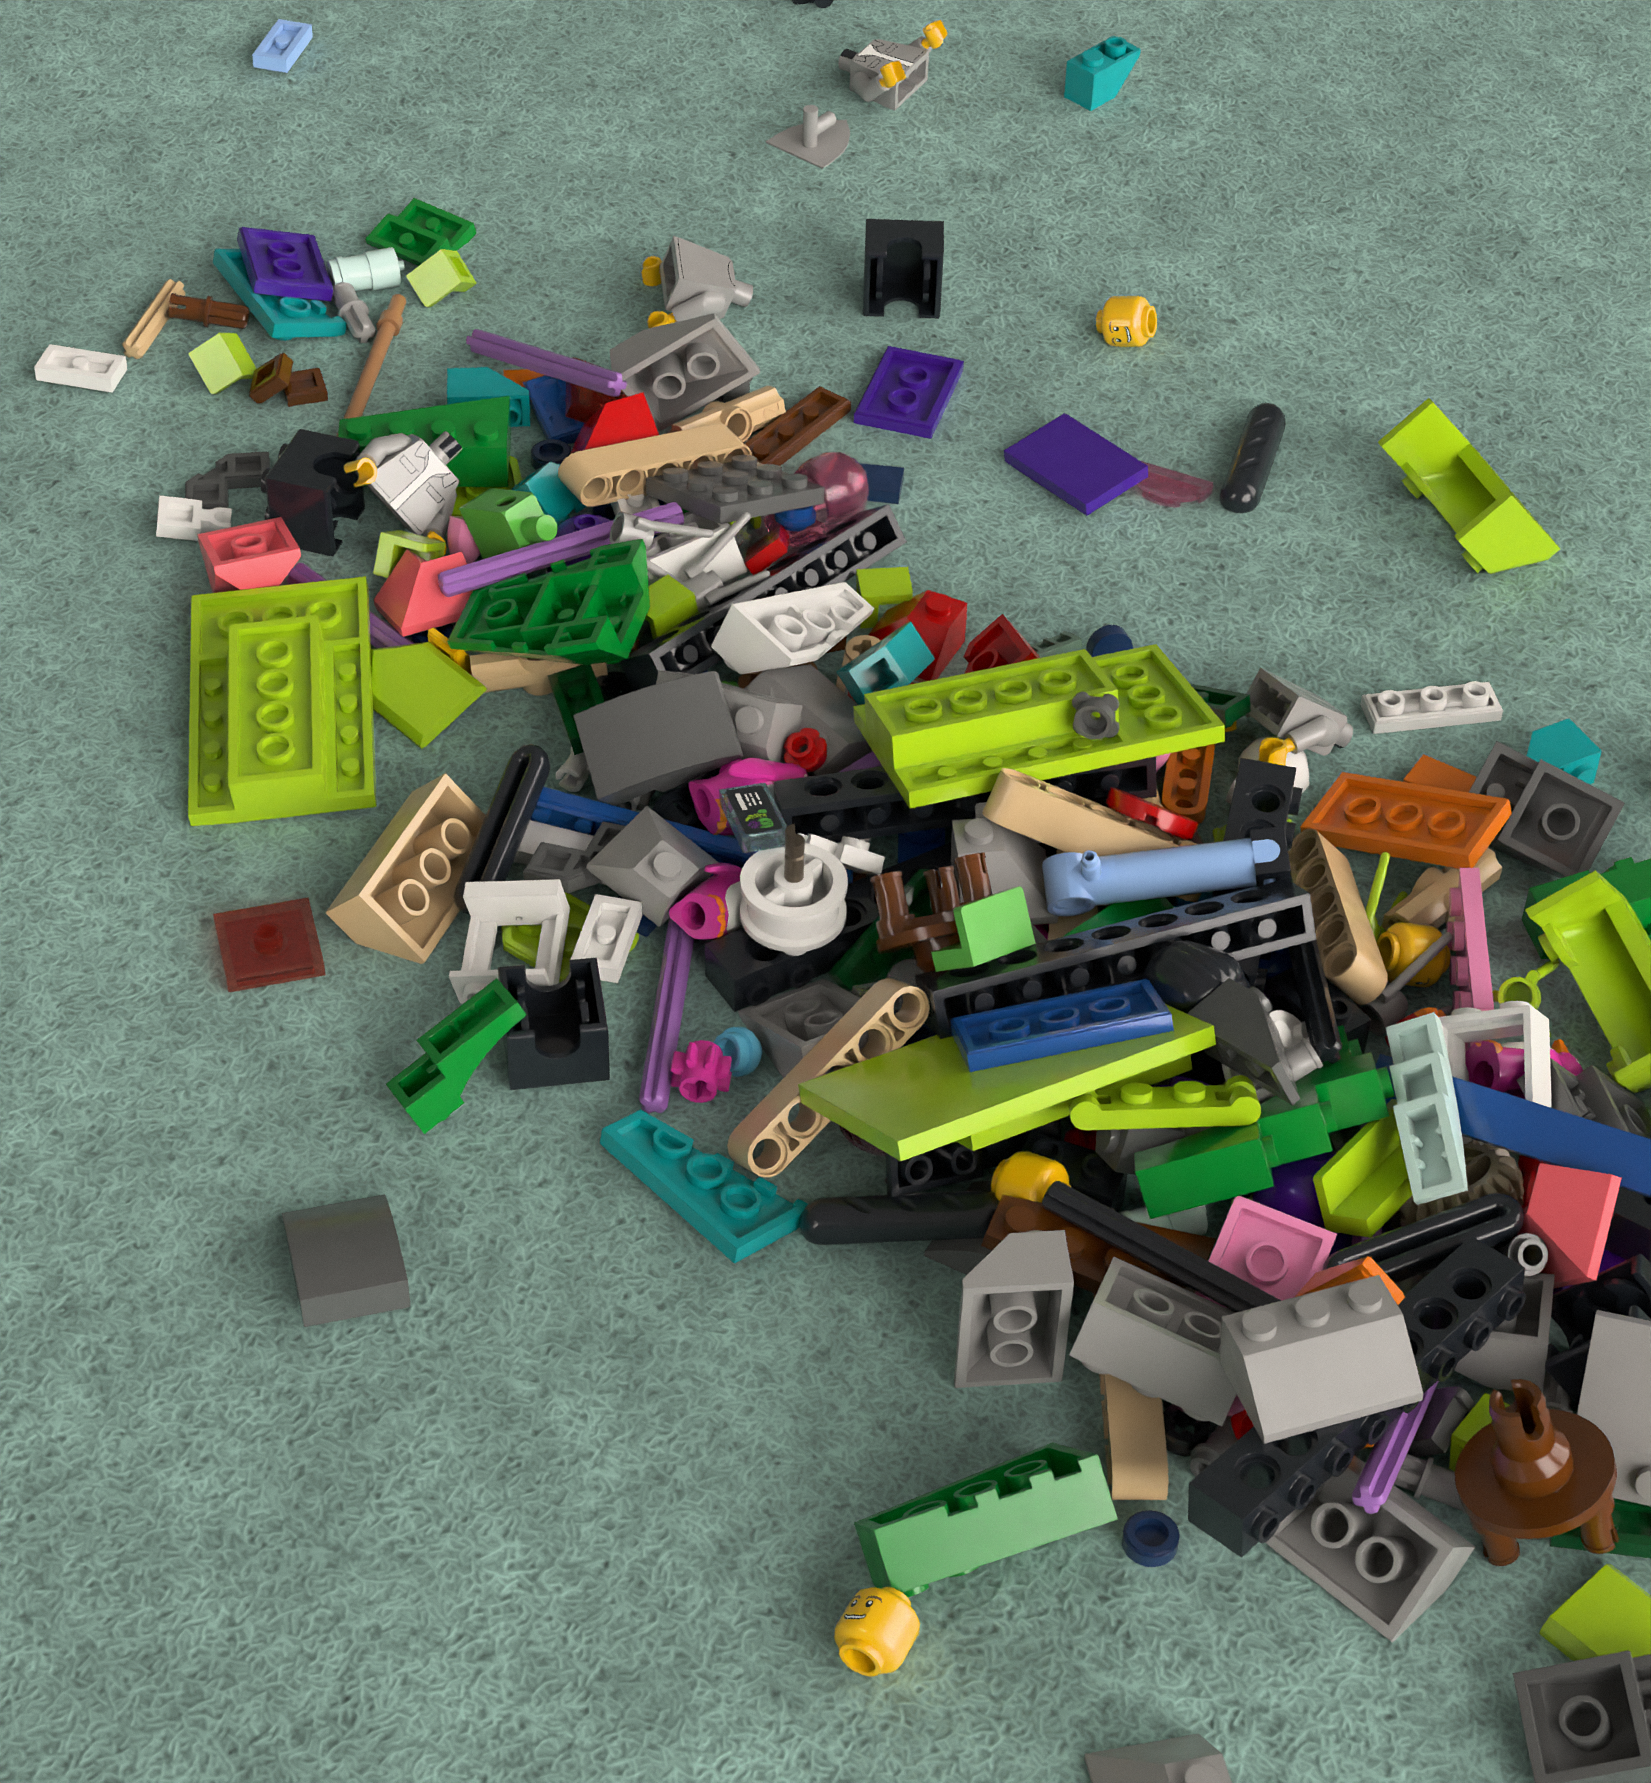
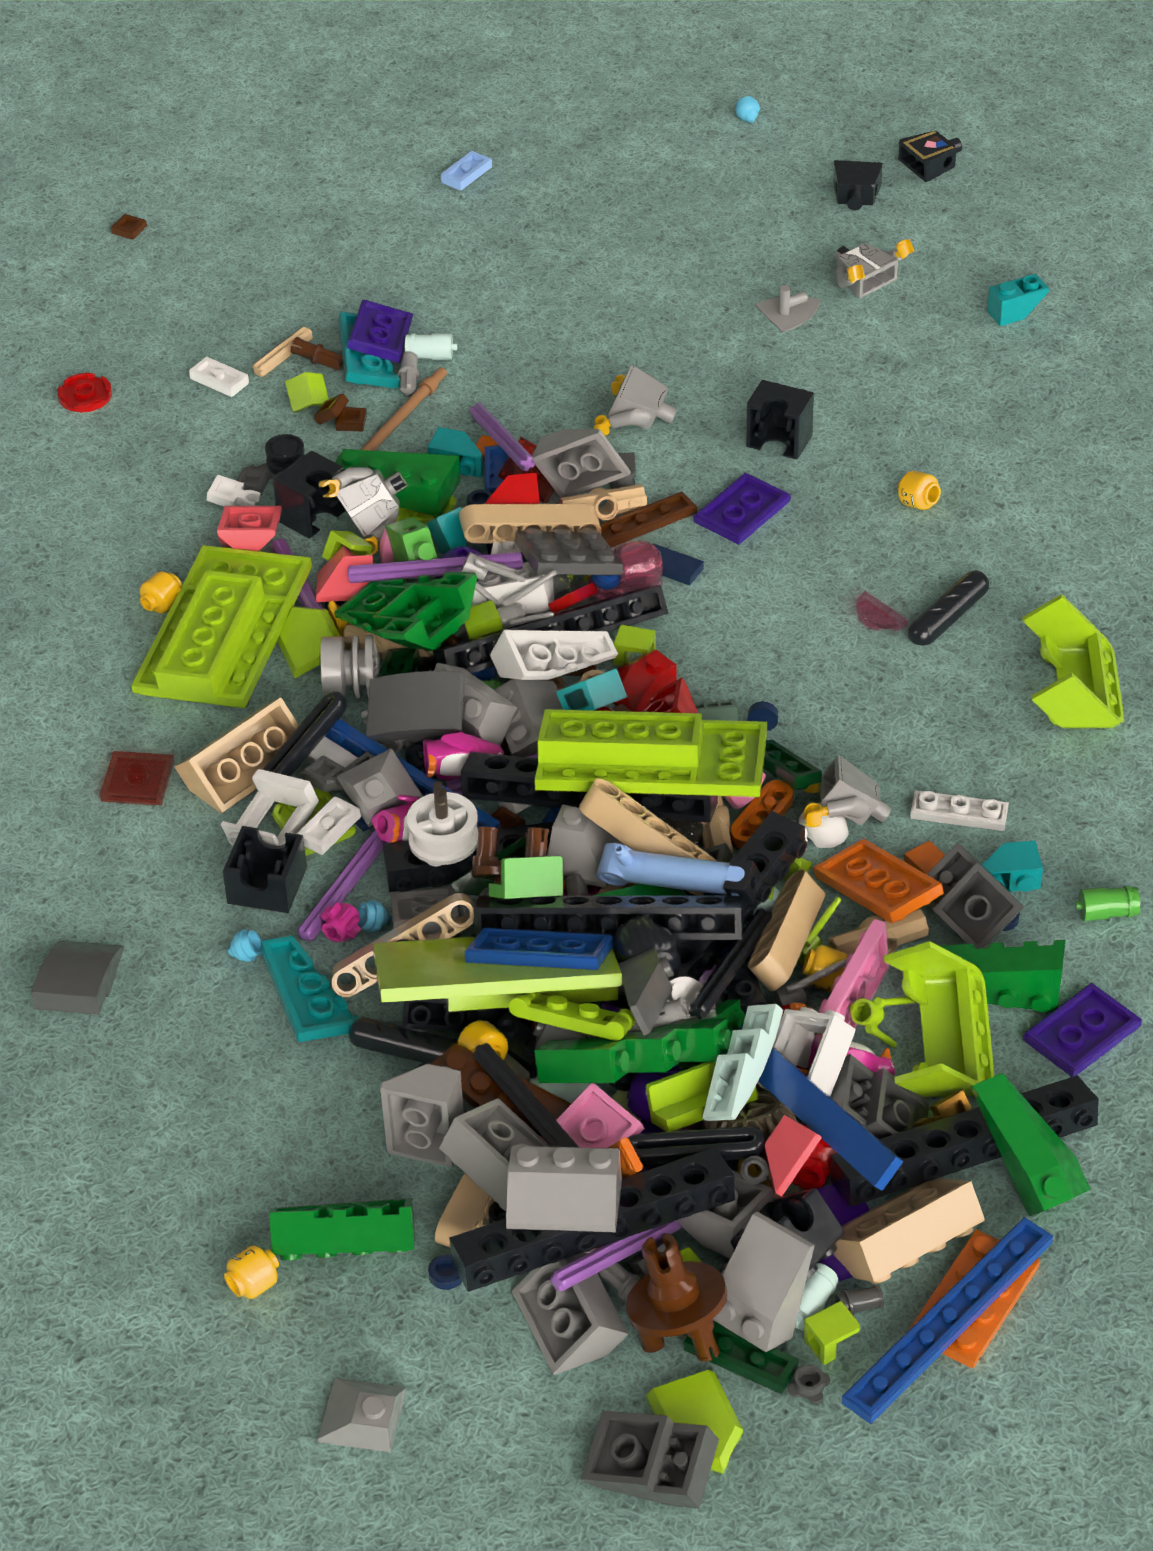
camera: 25 degrees right, 0 degrees up
(161, 673) = (159, 592): none -> yellow head
(244, 449) = (283, 451): none -> black wheel
(421, 232) = (483, 327): green slope -> none
(440, 276) = (476, 359): lime panel -> none
(453, 1050) = (176, 888): green slope -> none
(519, 709) = (348, 667): none -> light grey wheel
(575, 1144) = (245, 945): none -> medium azure plate
(753, 817) = (440, 766): tile -> none
(815, 754) = (508, 737): red plate -> none
(851, 853) = (497, 810): white plate -> none
(1076, 464) = (820, 584): dark purple tile -> none
(1094, 727) = (674, 759): dark grey plate -> none
(1151, 813) = (693, 832): red tile -> none

